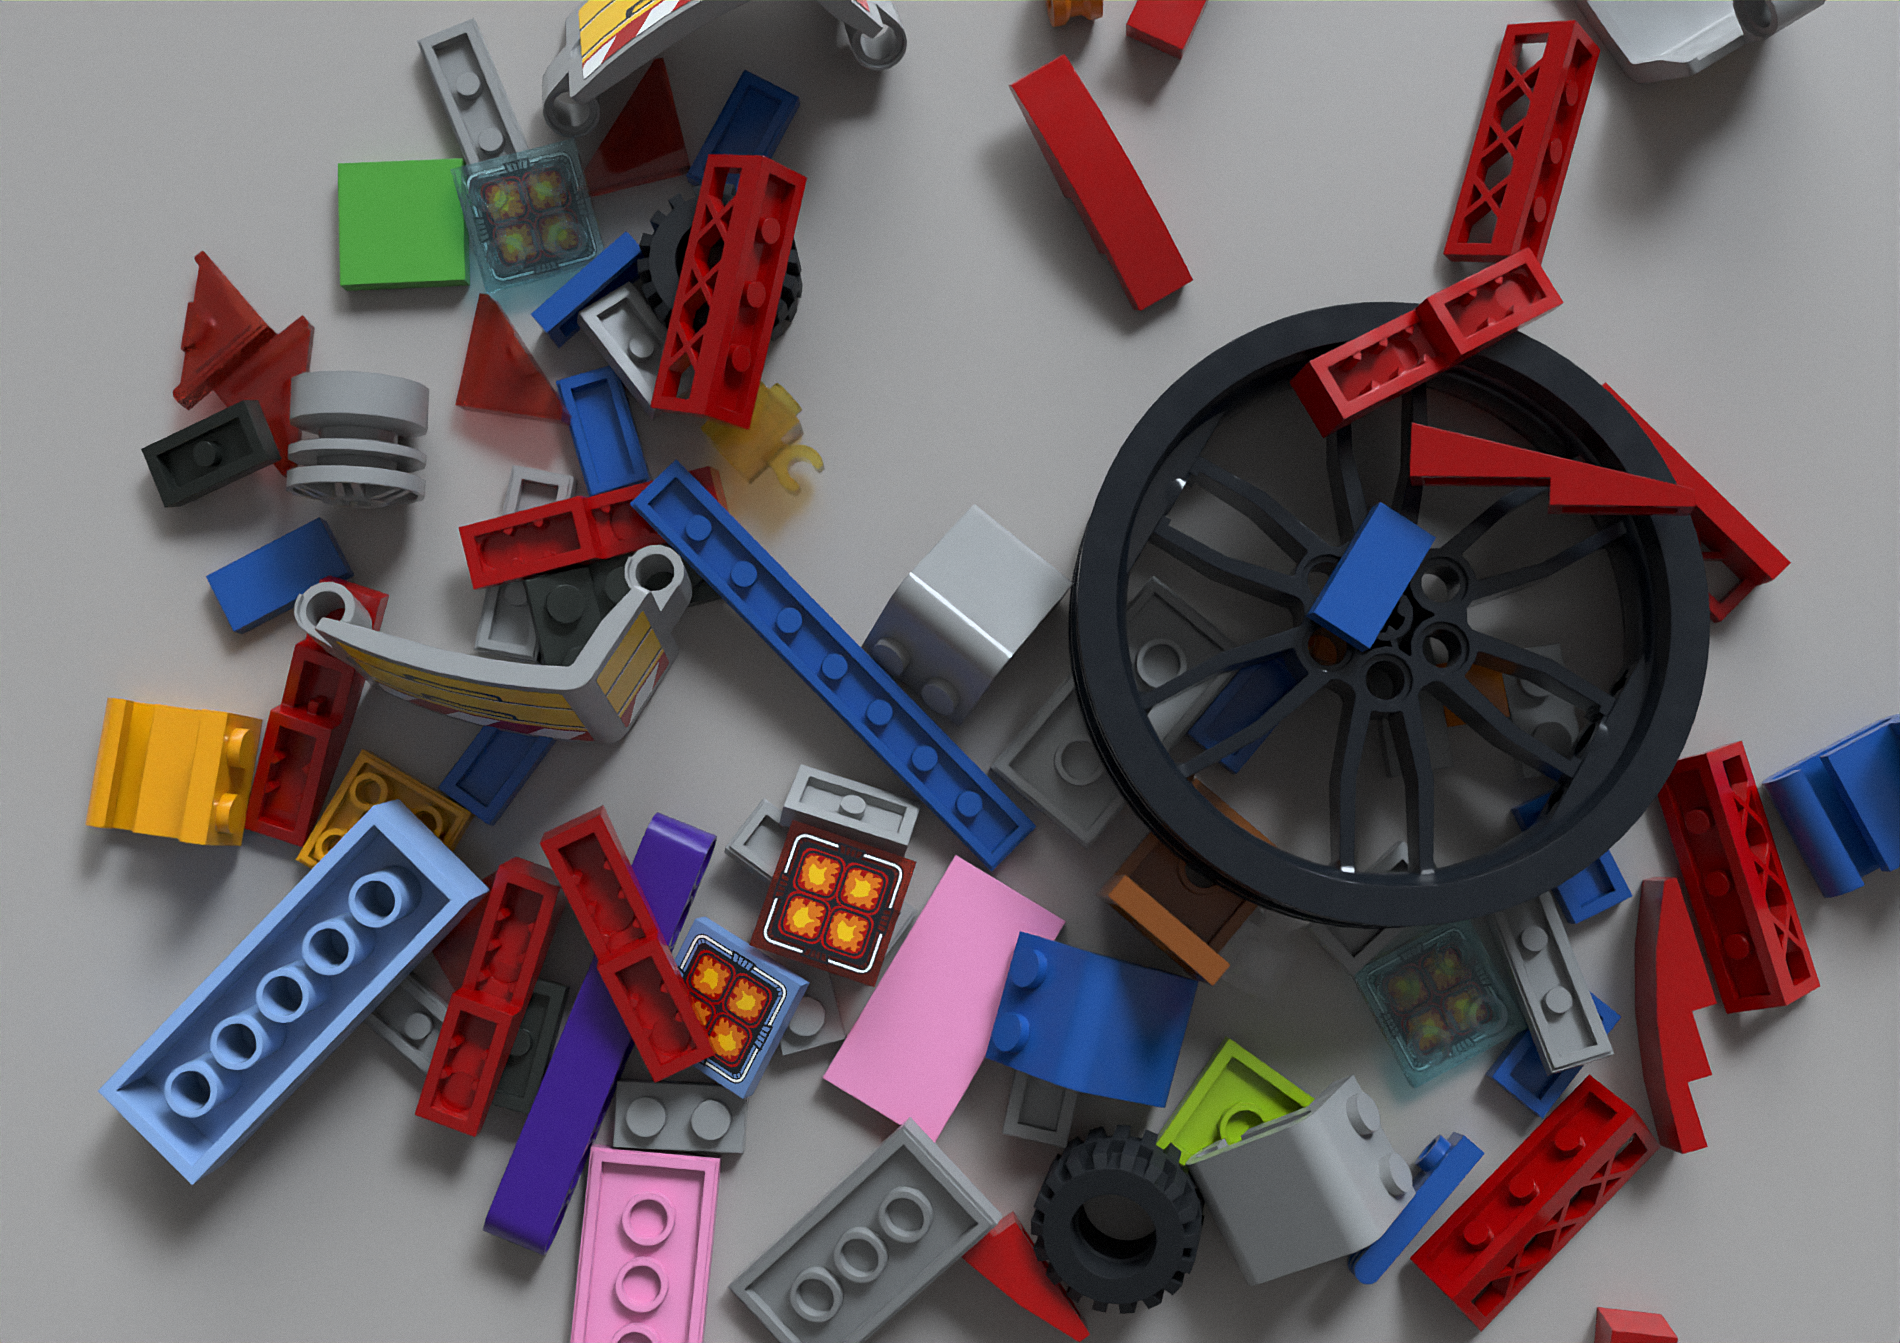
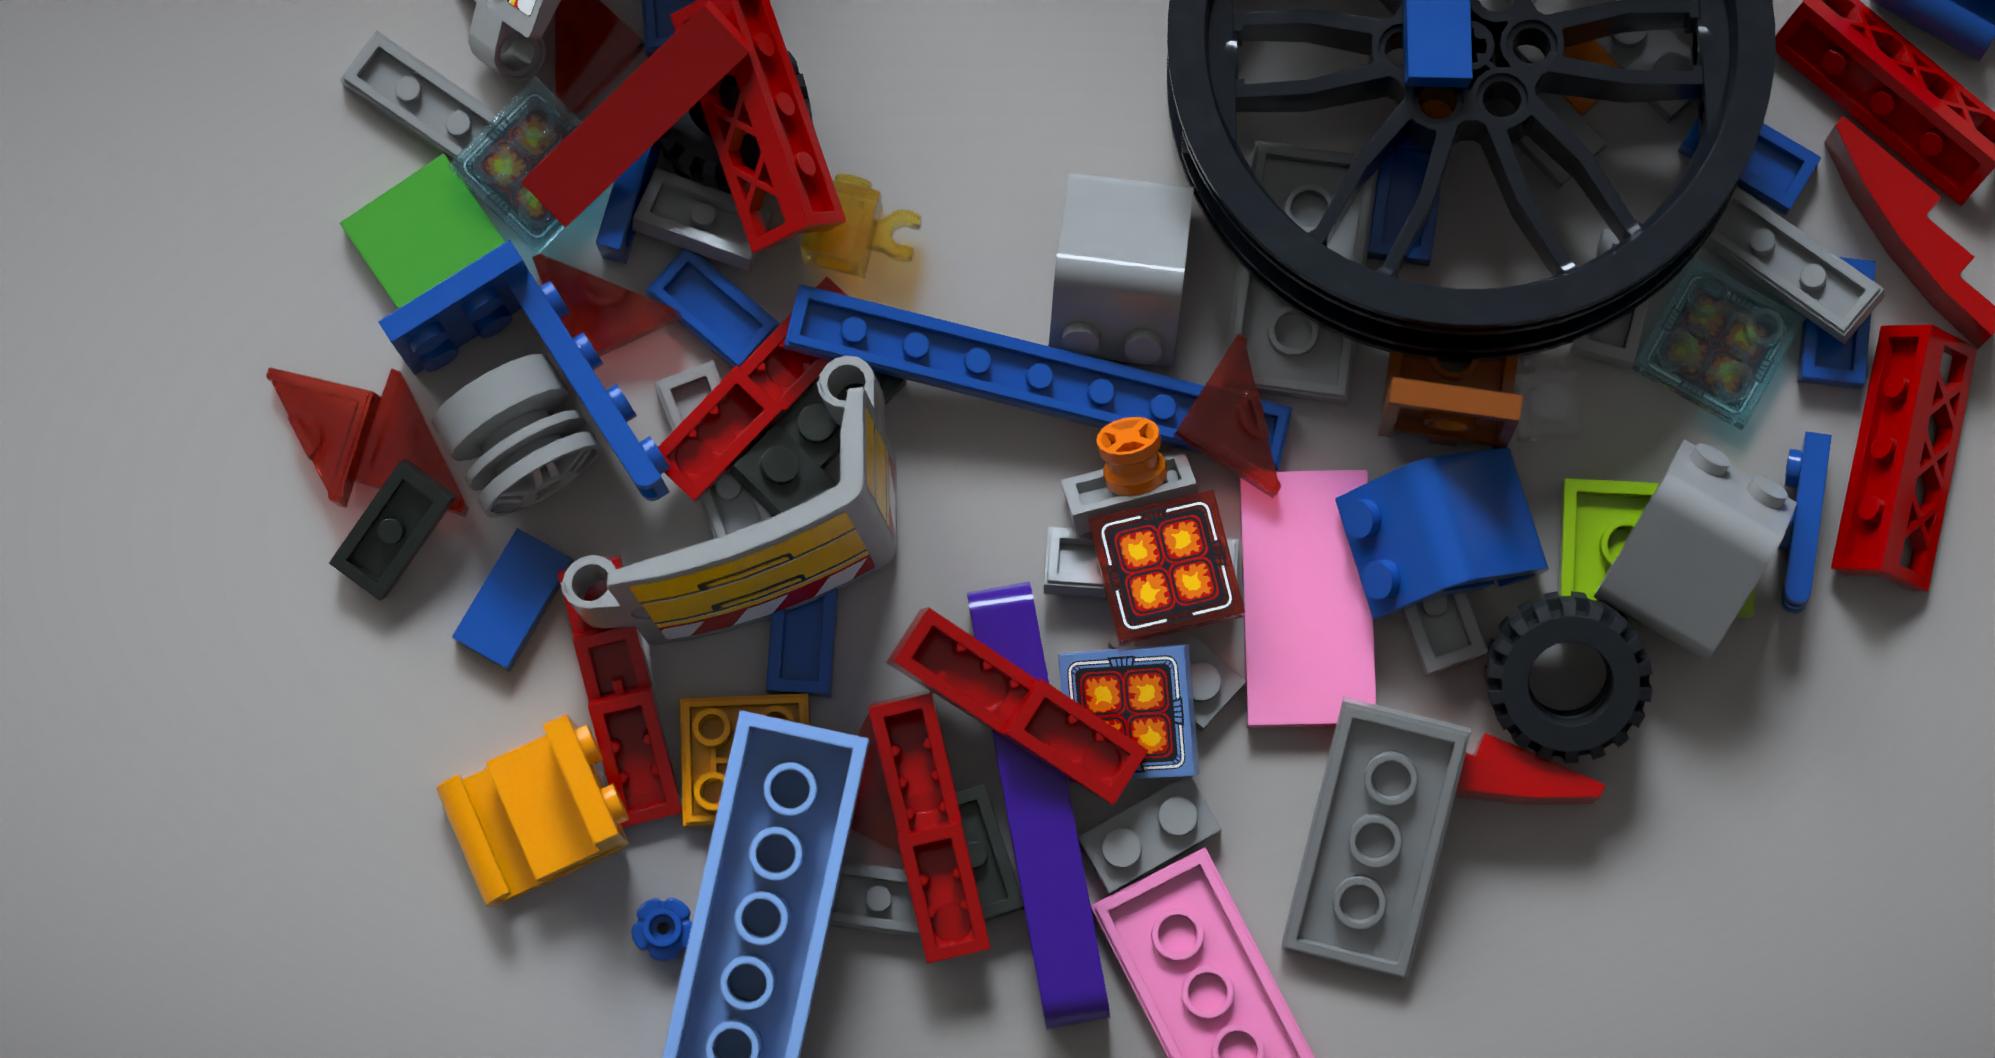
camera: 25 degrees left, 5 degrees down
(207, 928) = (645, 931): none -> blue plate
(411, 306) = (481, 304): none -> blue bracket
(624, 223) = (637, 114): none -> red slope
(868, 786) = (1132, 456): none -> orange wheel
(973, 806) = (1230, 422): none -> clear red tile

